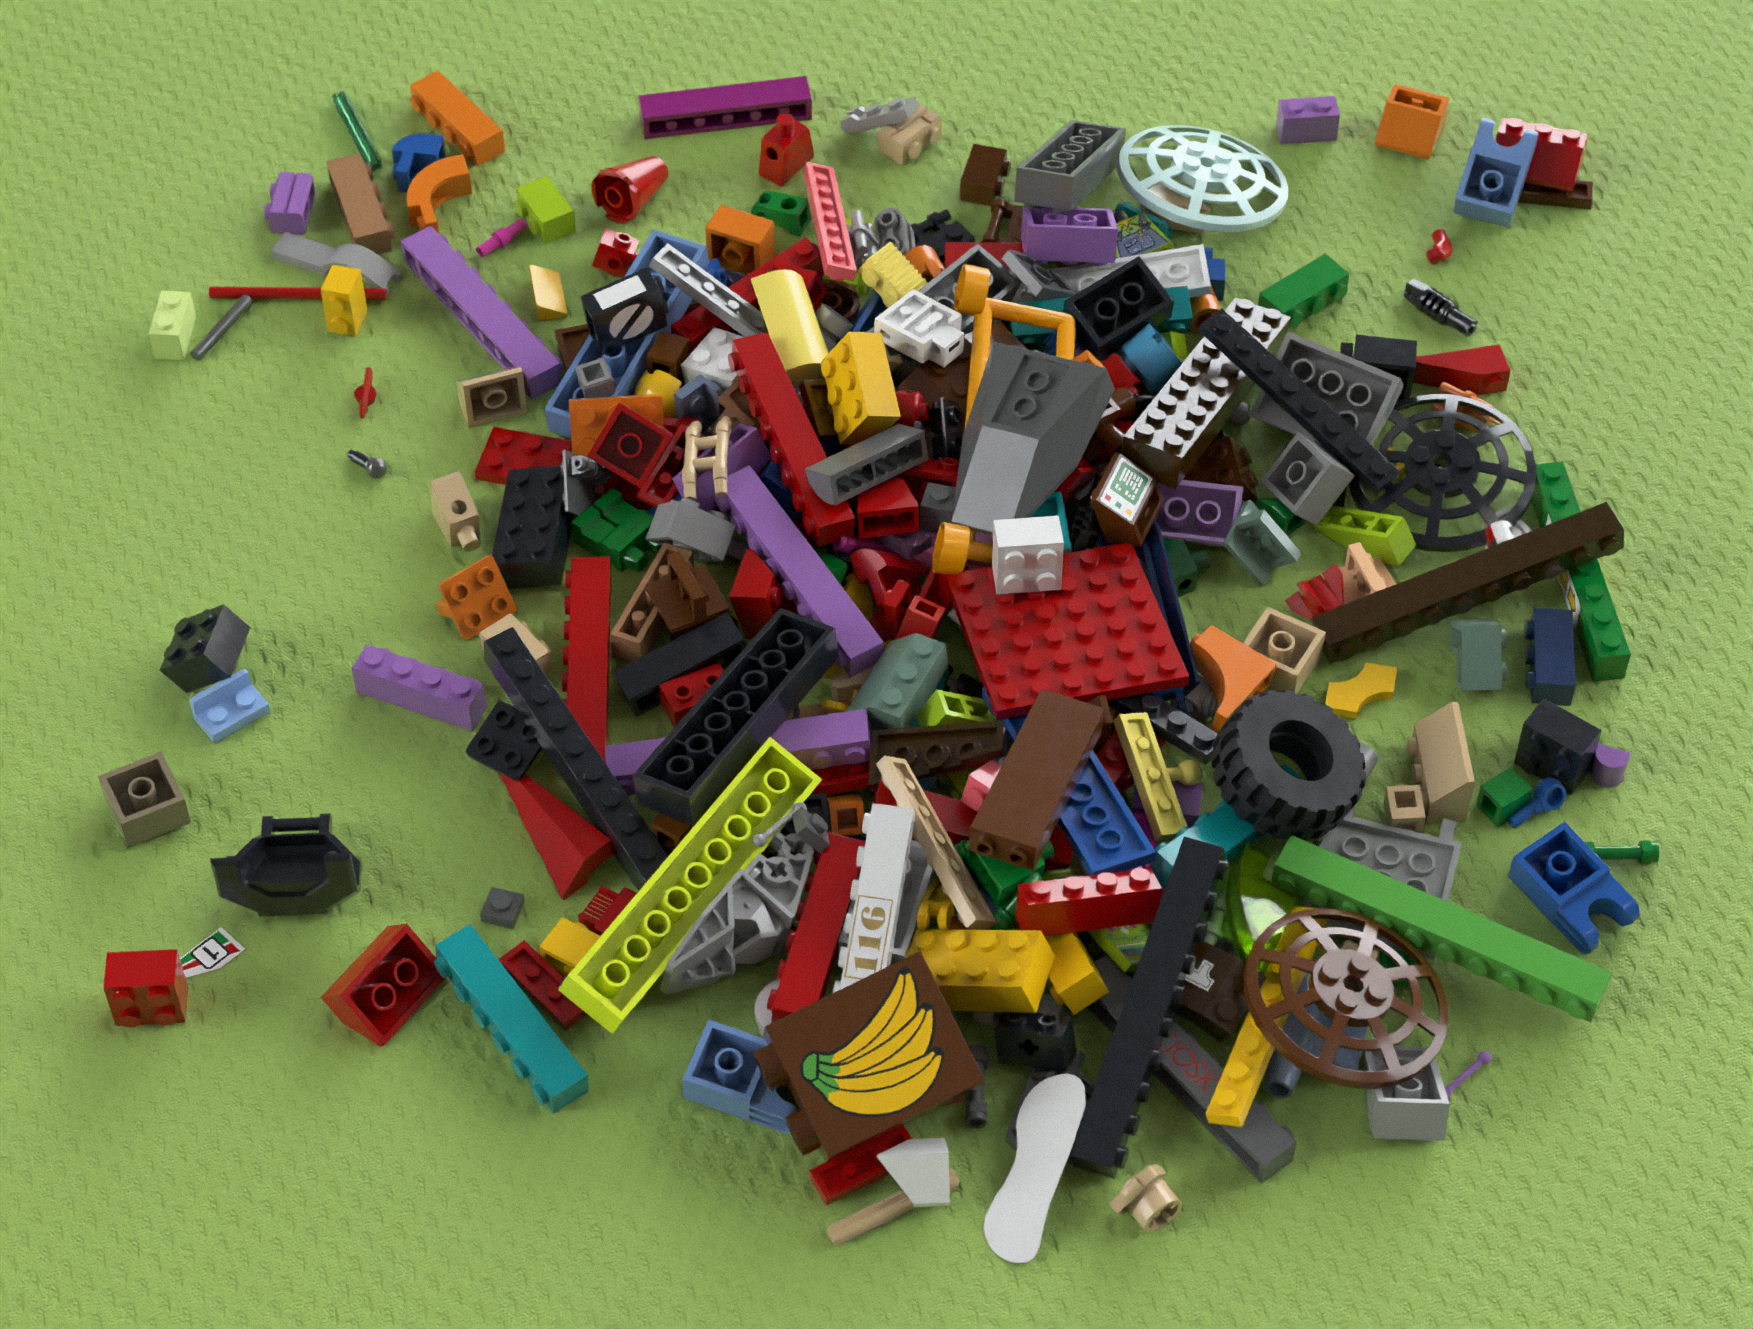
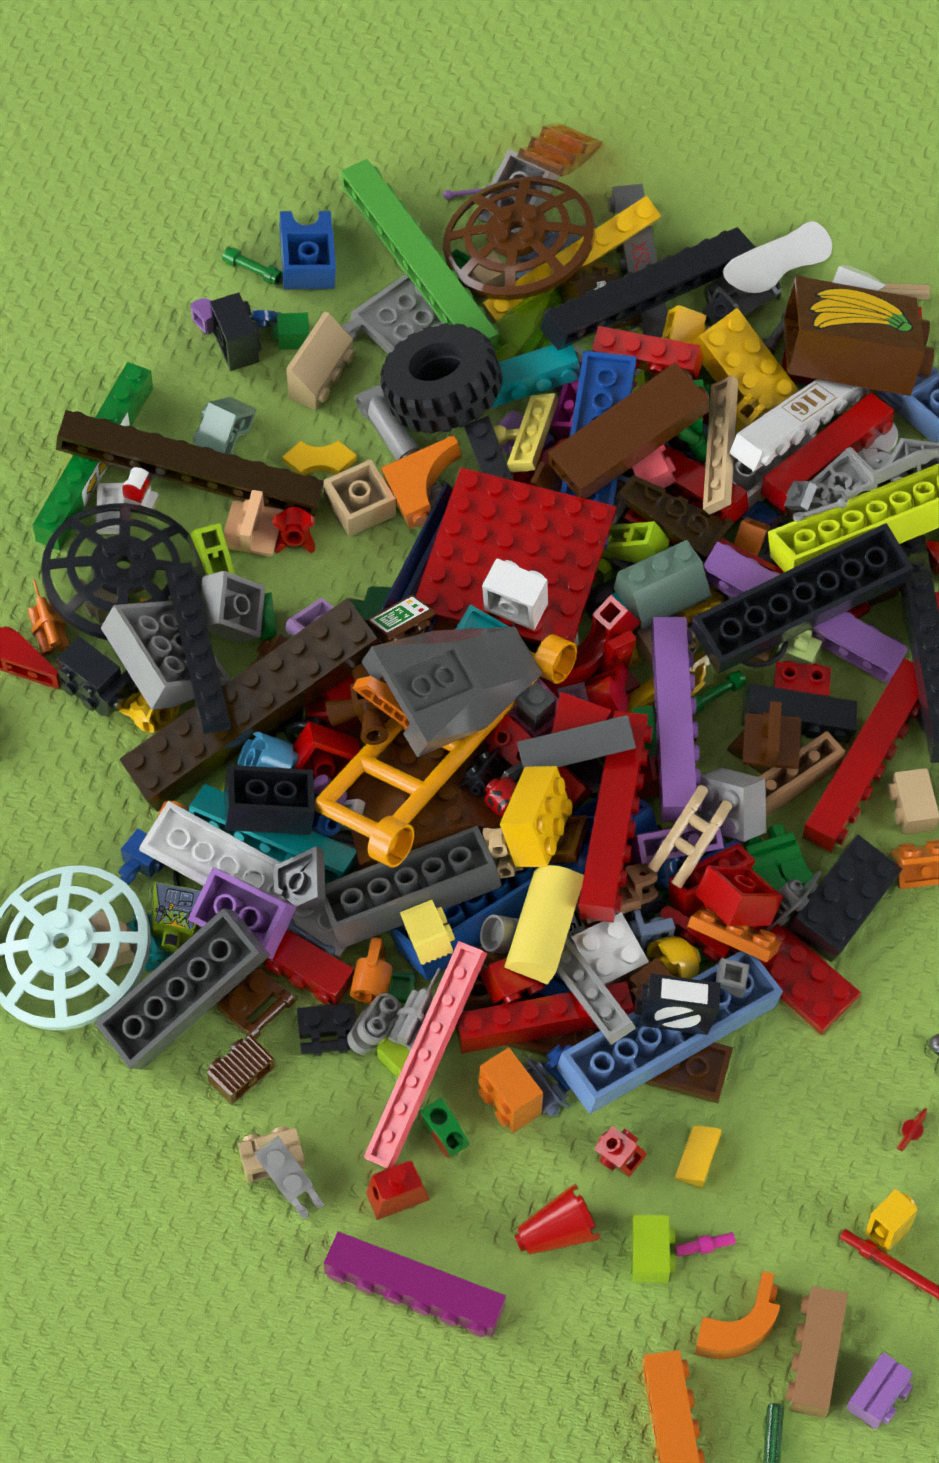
camera: 150 degrees left, 10 degrees up
(320, 257) = (872, 1301): light grey piece -> none
(413, 155) = (734, 1388): blue brick -> none
(455, 511) = (901, 936): tan torso -> none
(481, 310) = (770, 1161): medium lavender brick -> none
(492, 396) = (810, 1052): tan slope -> none
(754, 594) = (715, 724): red slope -> none
(922, 329) = (453, 836): white piece -> none
(1148, 1199) = (723, 208): tan piece -> none
(1259, 543) = (303, 586): sand green bracket -> none
(1307, 290) = (79, 796): green brick -> none
(1395, 1155) = (559, 149): none -> clear orange slope
(1404, 807) = (367, 354): tan brick -> none
(1550, 656) = (173, 403): dark blue brick -> none

